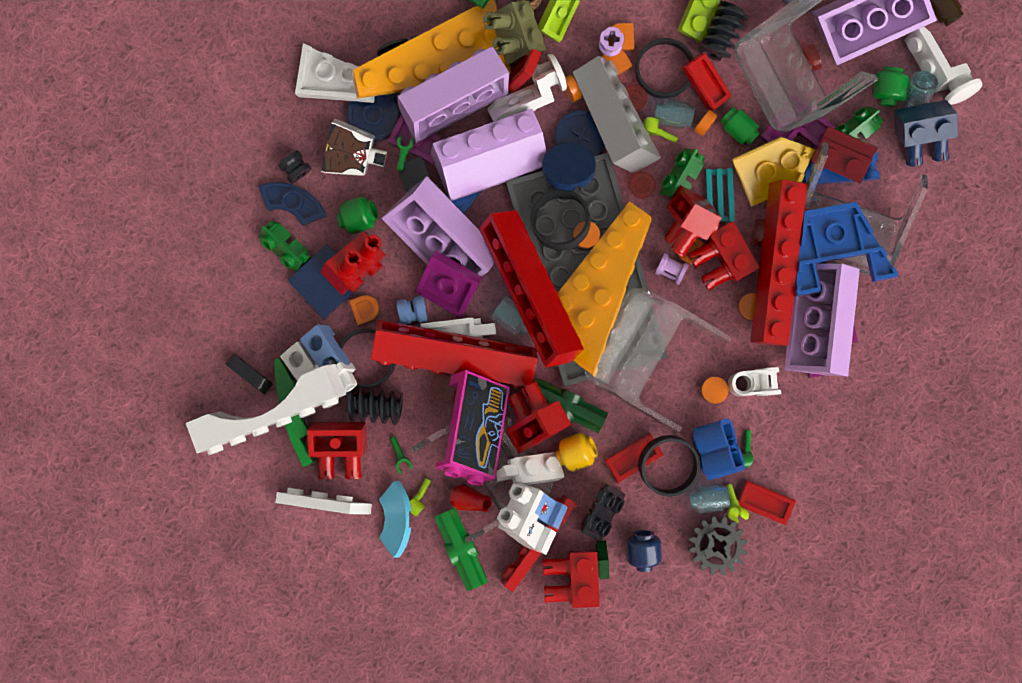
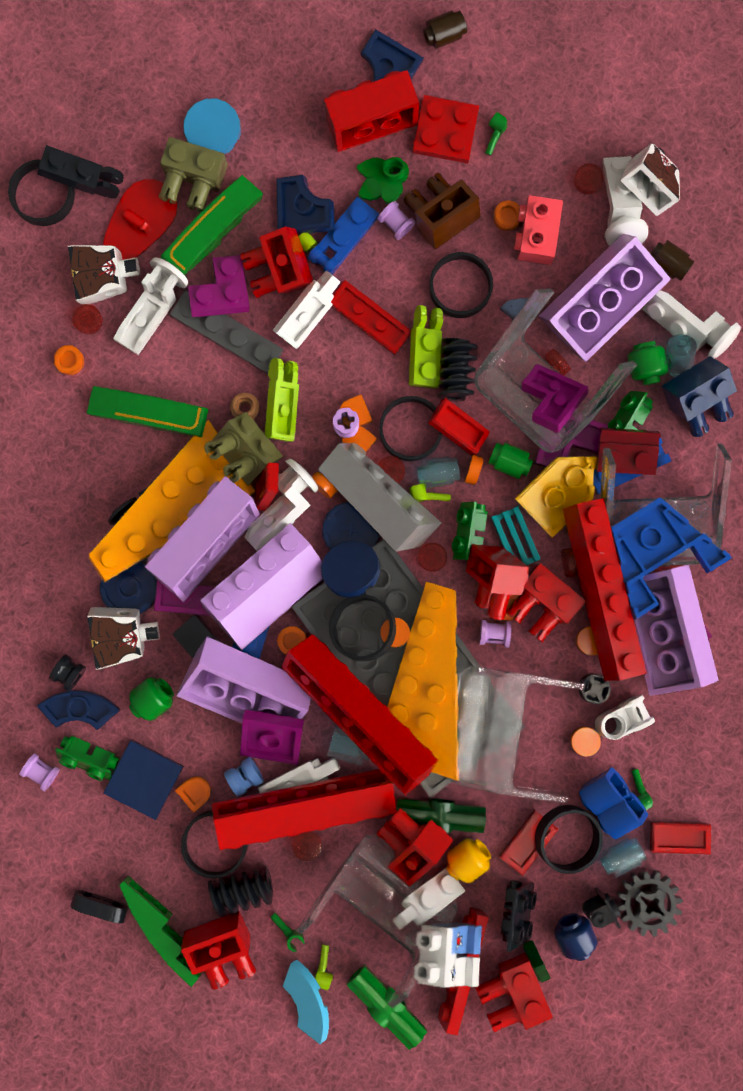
camera: 25 degrees left, 0 degrees up
(240, 242) = (39, 772): none -> lavender bush
(312, 389) = (91, 975): white arch -> none
(317, 350) = (170, 873): hips -> none
(320, 501) = (226, 1015): white wing -> none
(325, 77) = (63, 567): white wing -> none
(354, 263) = (165, 752): red brick -> none
(403, 153) = (174, 618): green hand -> none
(469, 499) = (374, 952): red cone -> none
(475, 428) = (355, 882): panel -> none
(493, 205) = (289, 638): none -> orange tile
(675, 533) = (601, 910): none -> black hinge
(735, 509) = (652, 857): lime hand -> none
(743, 346) = (598, 687): none -> black wheel
(801, 83) = (558, 395): none -> magenta plate

